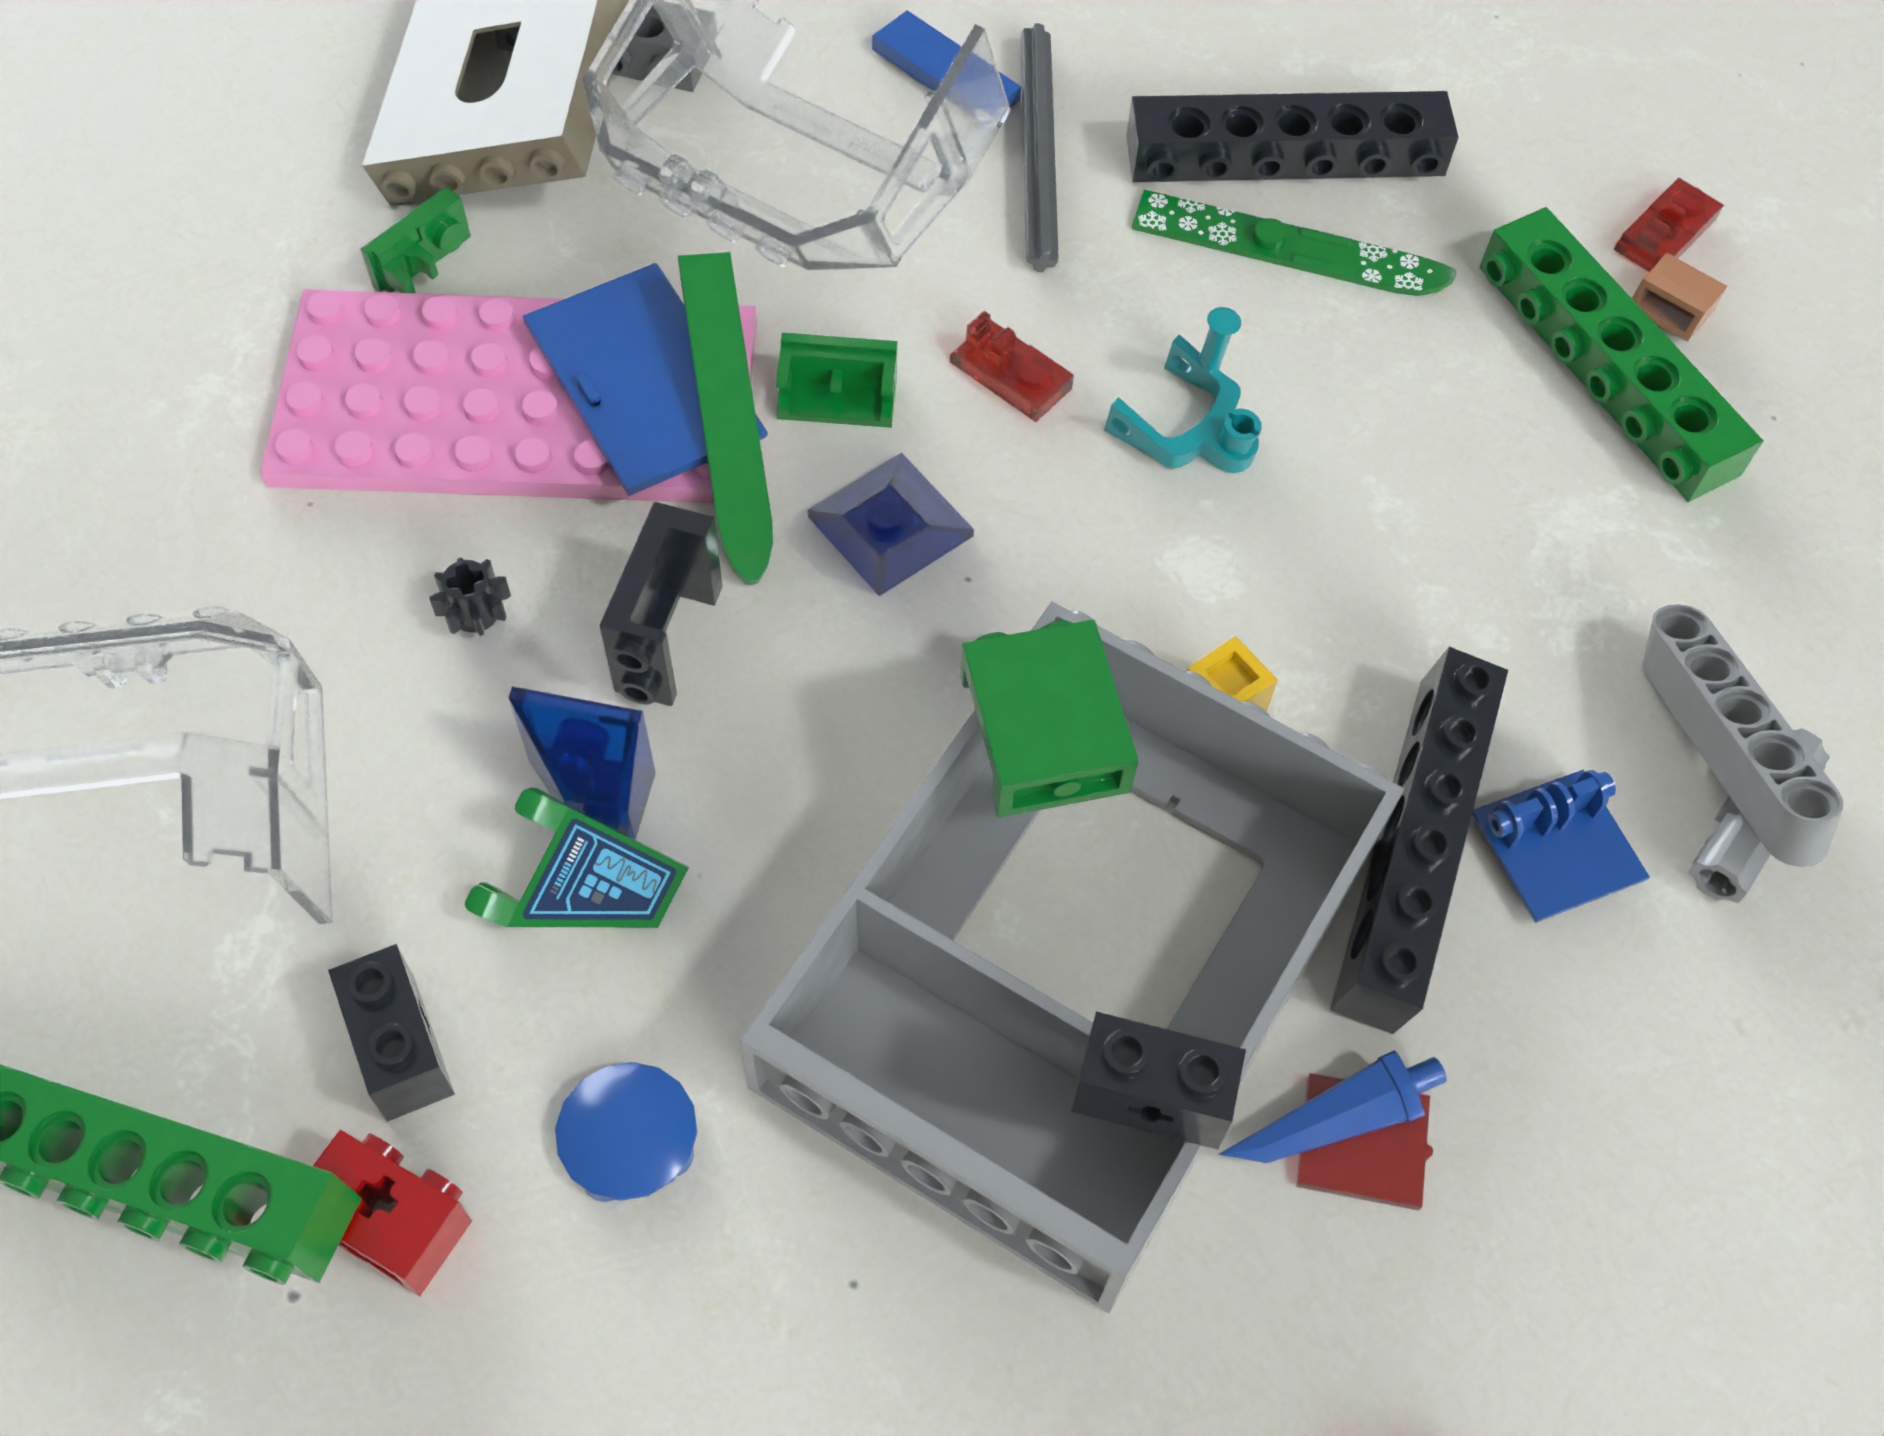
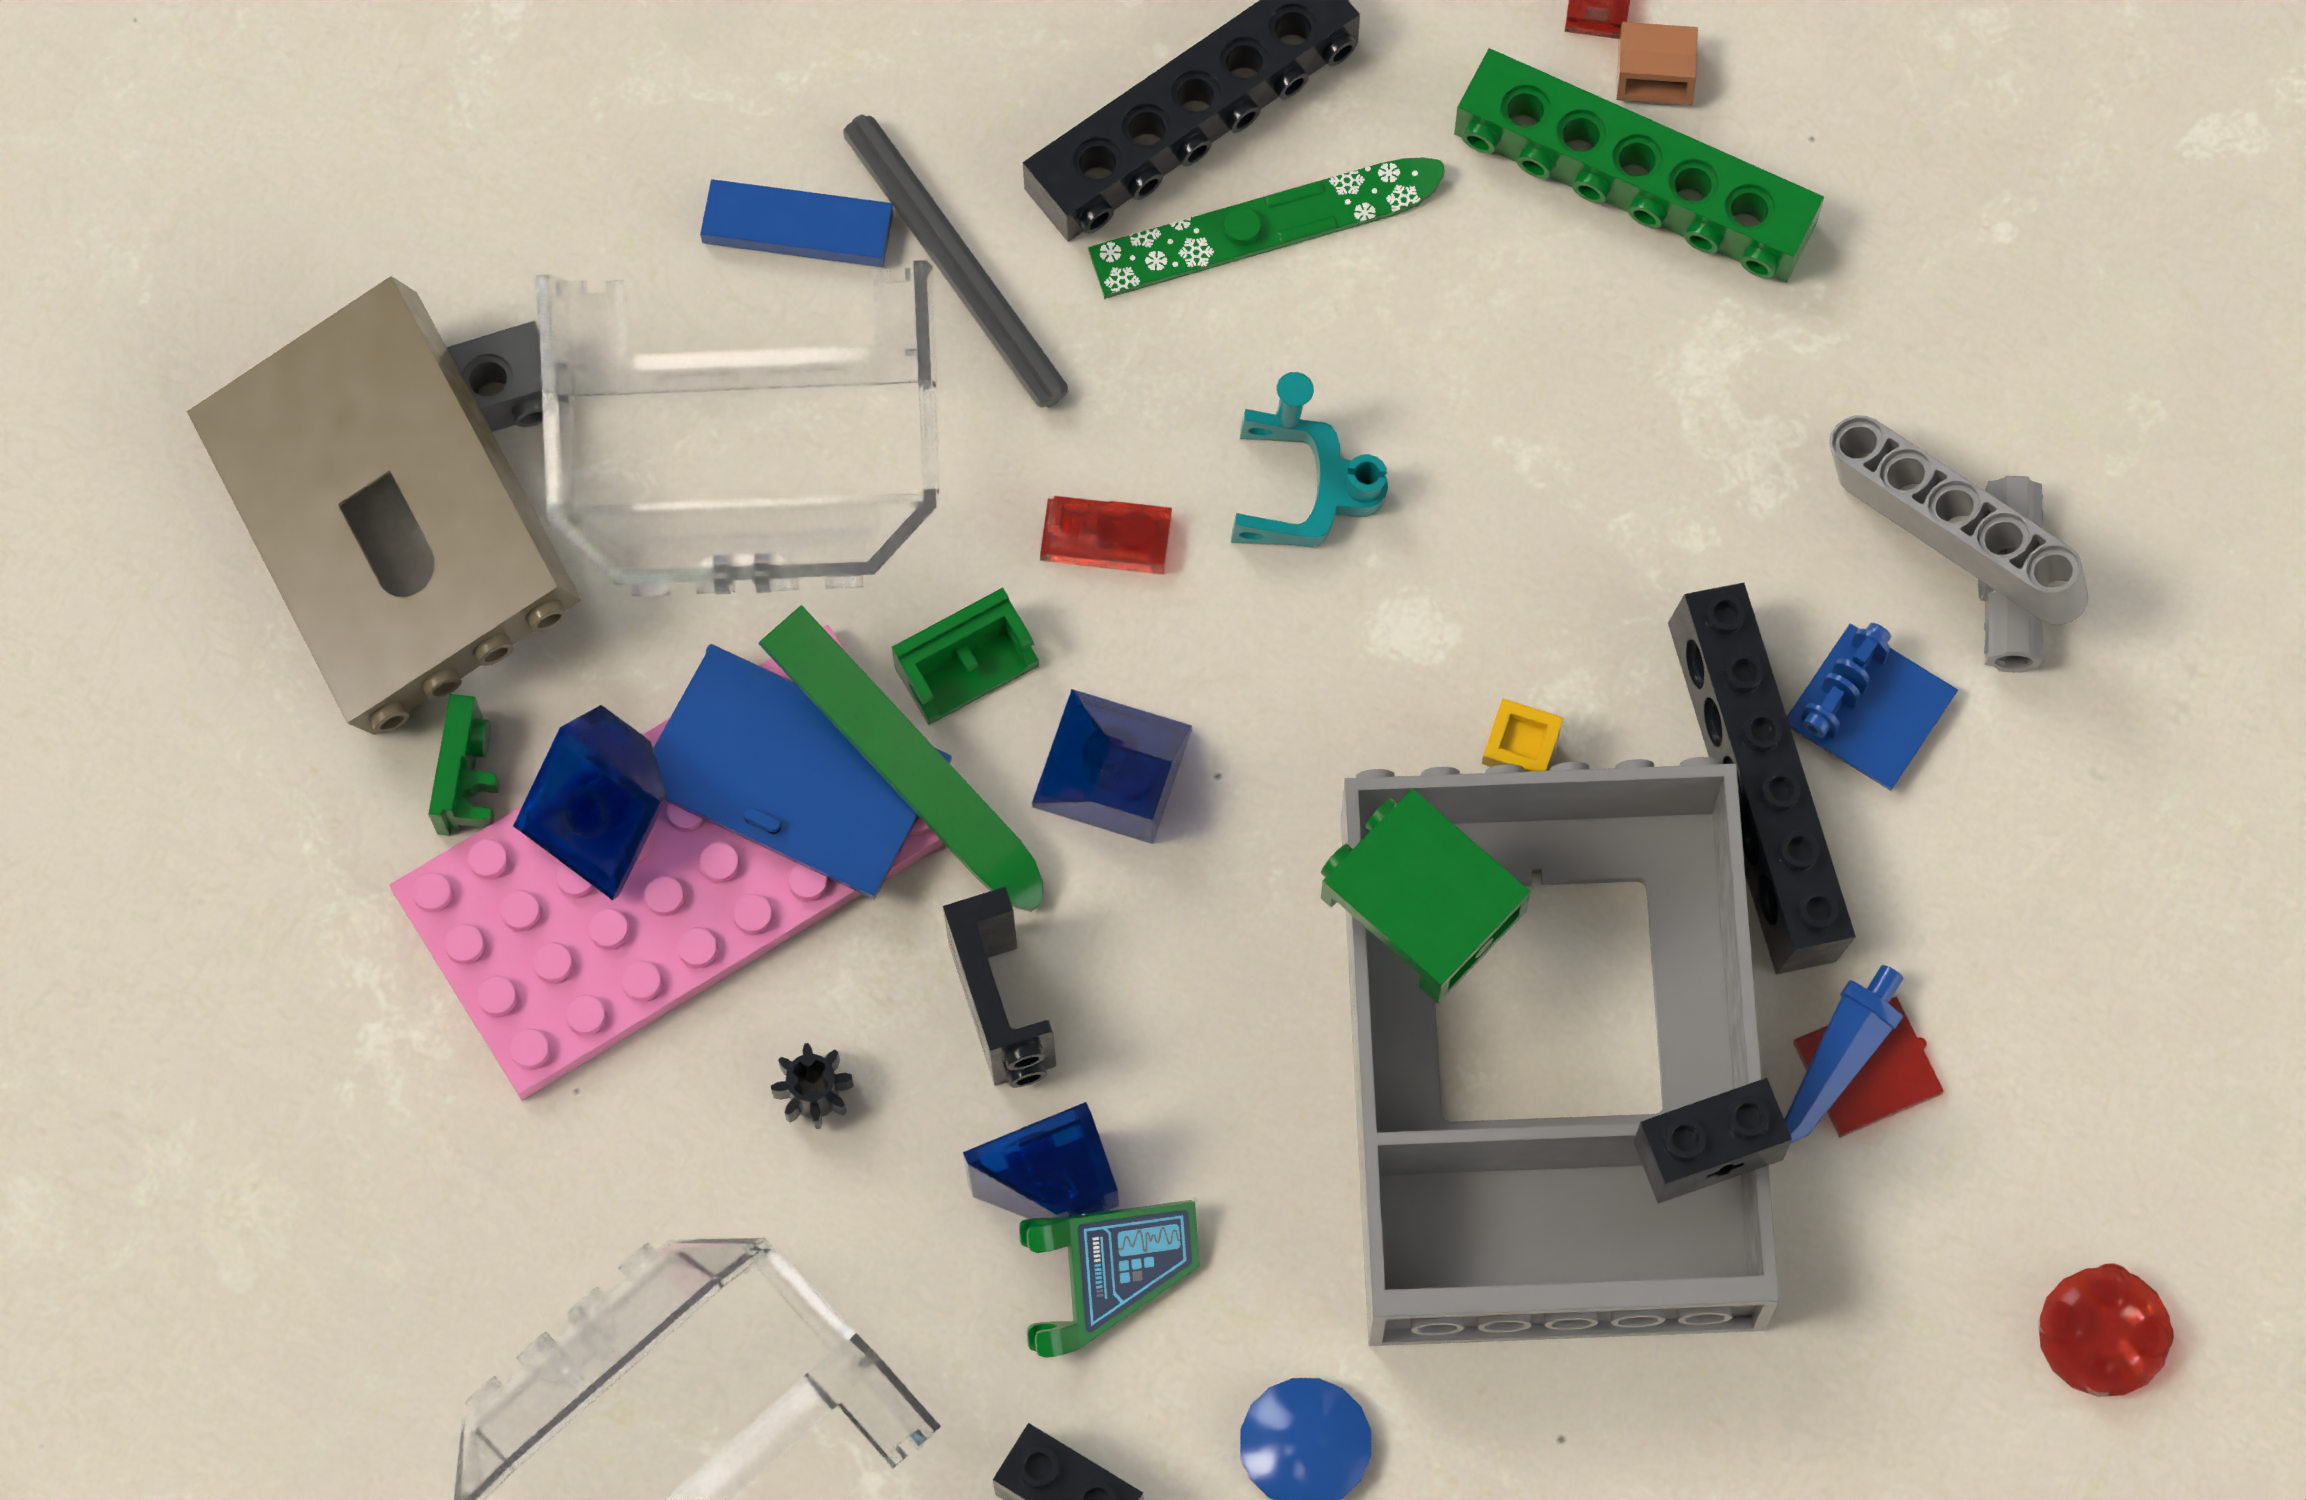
camera: 30 degrees left, 10 degrees up
(478, 296) = (595, 799): none -> clear blue slope

